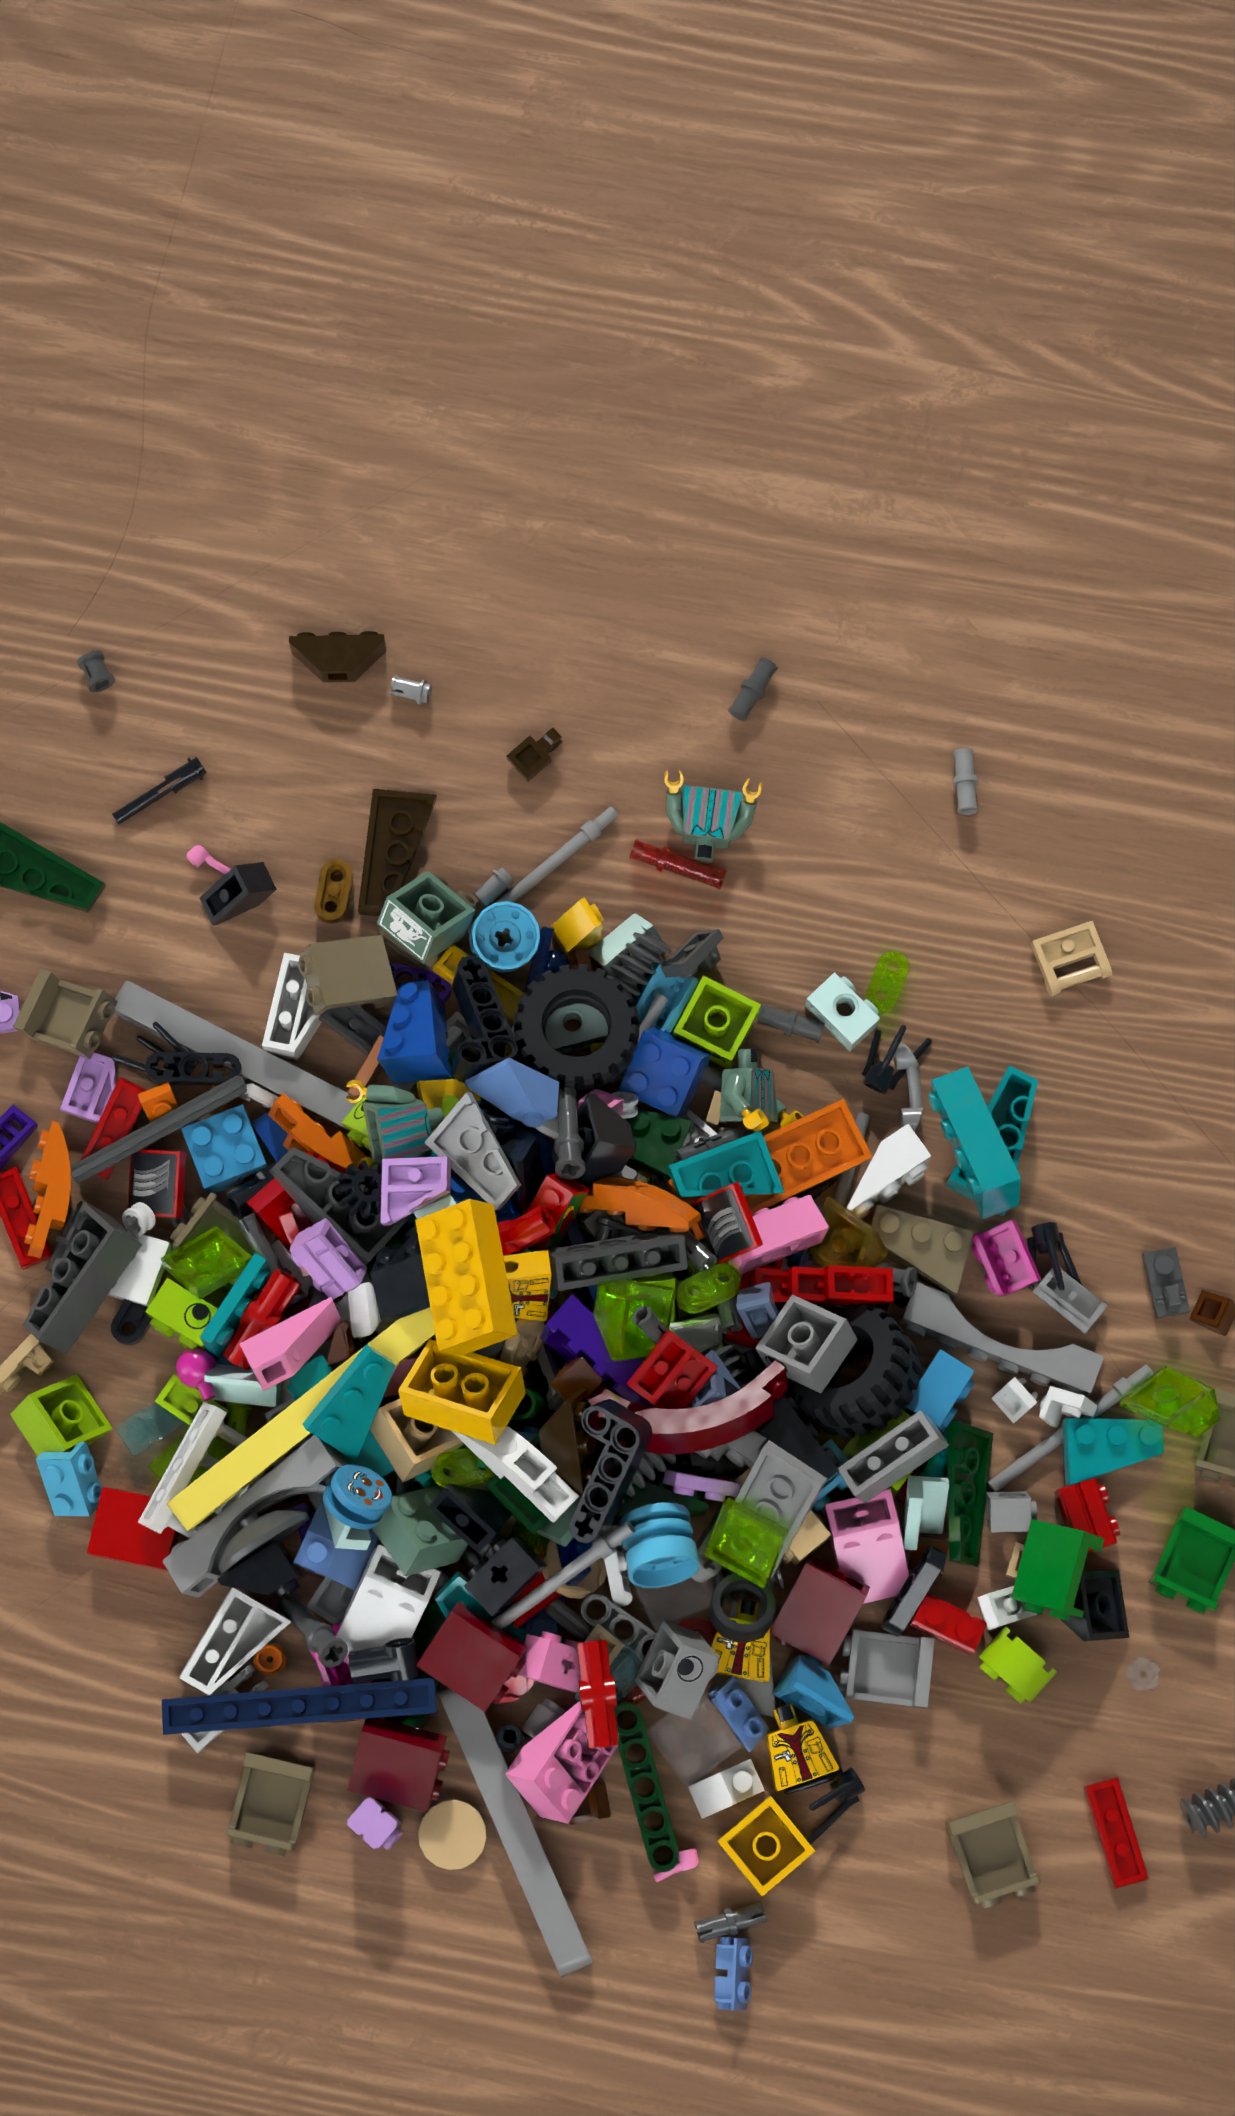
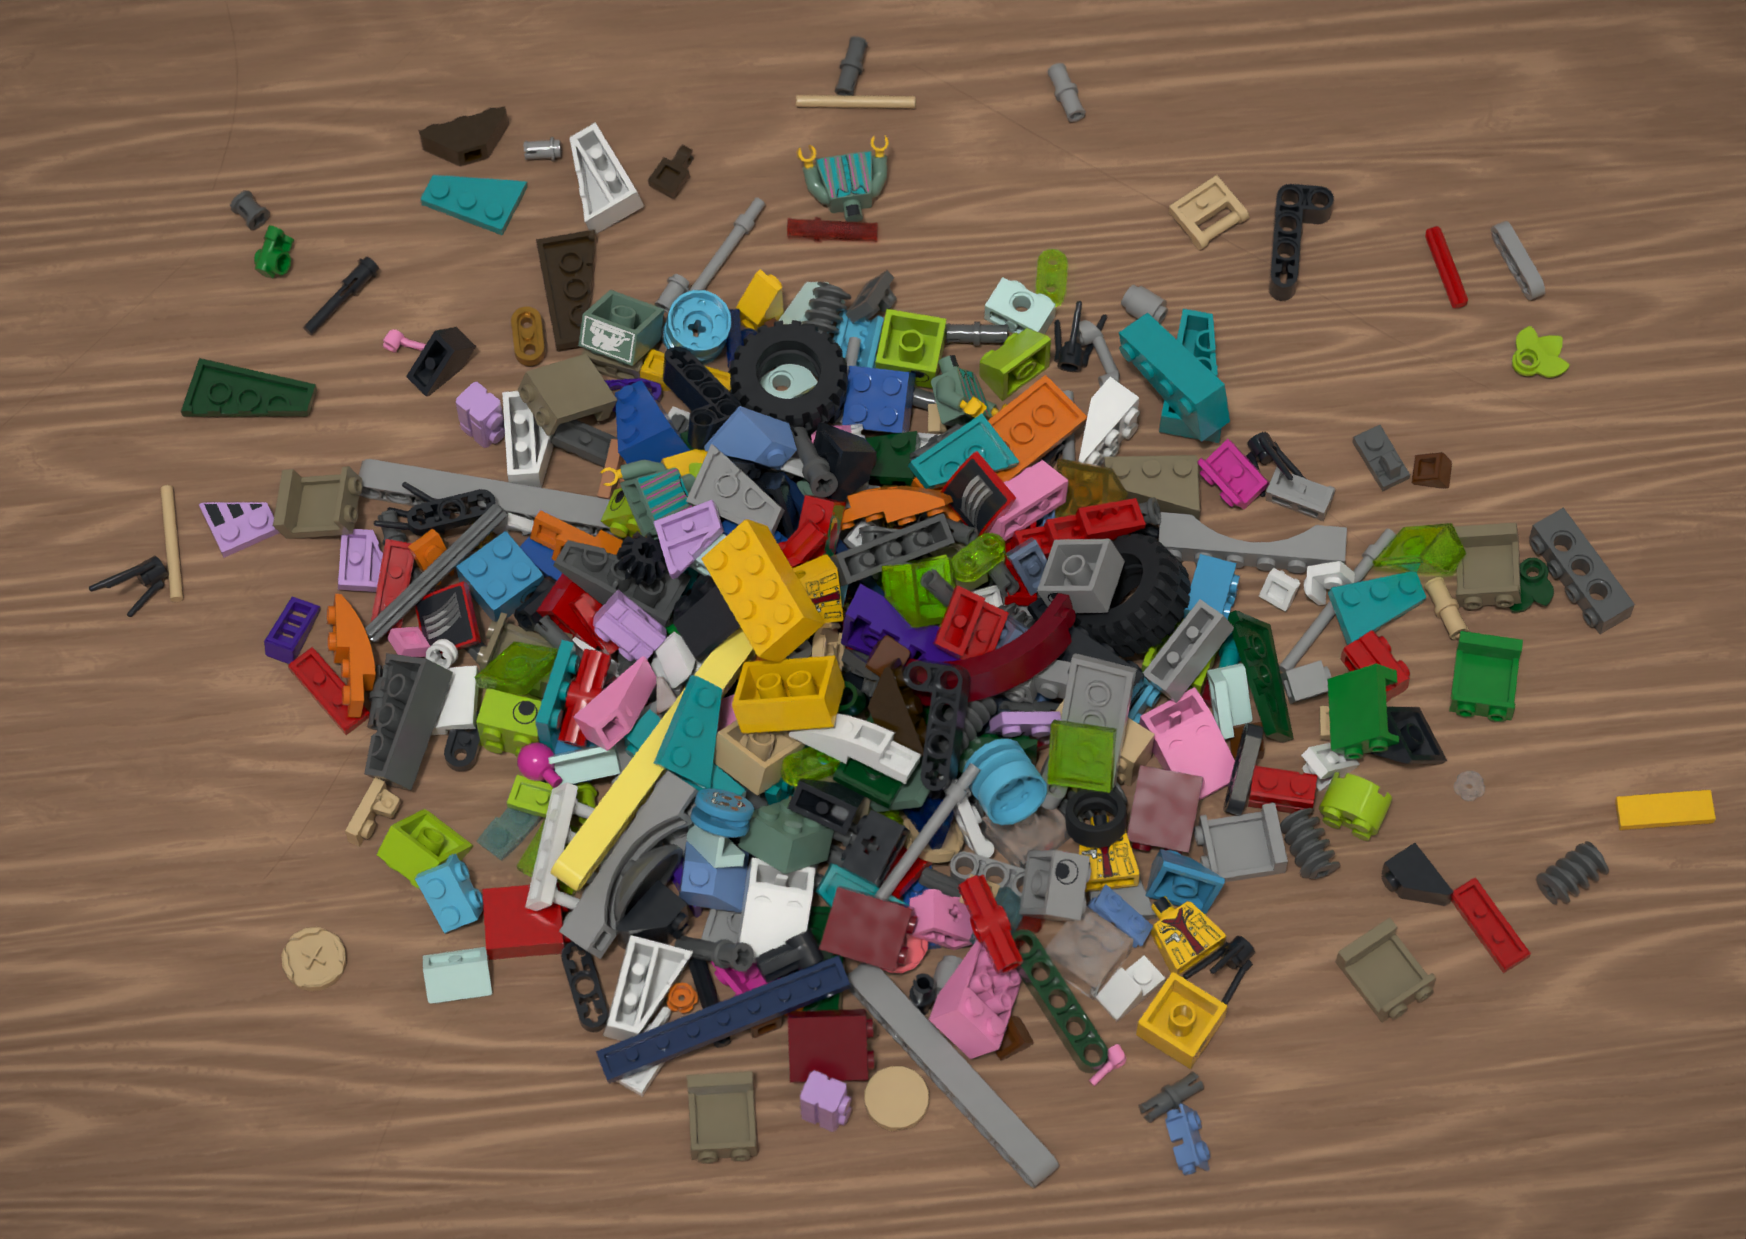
camera: 15 degrees left, 10 degrees down
(52, 1564) = (457, 975): none -> light aqua panel
(102, 729) = (274, 255): none -> green plate
(112, 1192) = (408, 641): none -> bright pink plate
(134, 1052) = (389, 533): none -> dark grey pin
(168, 1642) = (582, 1010): none -> black beam
(256, 968) = (480, 415): none -> lavender brick
(295, 1658) = (705, 990): none -> black axle
(327, 725) = (475, 200): none -> teal wing
(459, 743) = (602, 181): none -> white wedge
(746, 728) = (855, 101): none -> tan bar
(819, 1068) = (1015, 362): none -> lime slope
(956, 1693) = (1307, 846): none -> dark grey piece
(973, 1043) = (1141, 300): none -> light grey brick
(1055, 1760) = (1415, 878): none -> black slope
(1147, 1017) = (1289, 241): none -> black beam
(1181, 1471) = (1446, 607): none -> tan pin

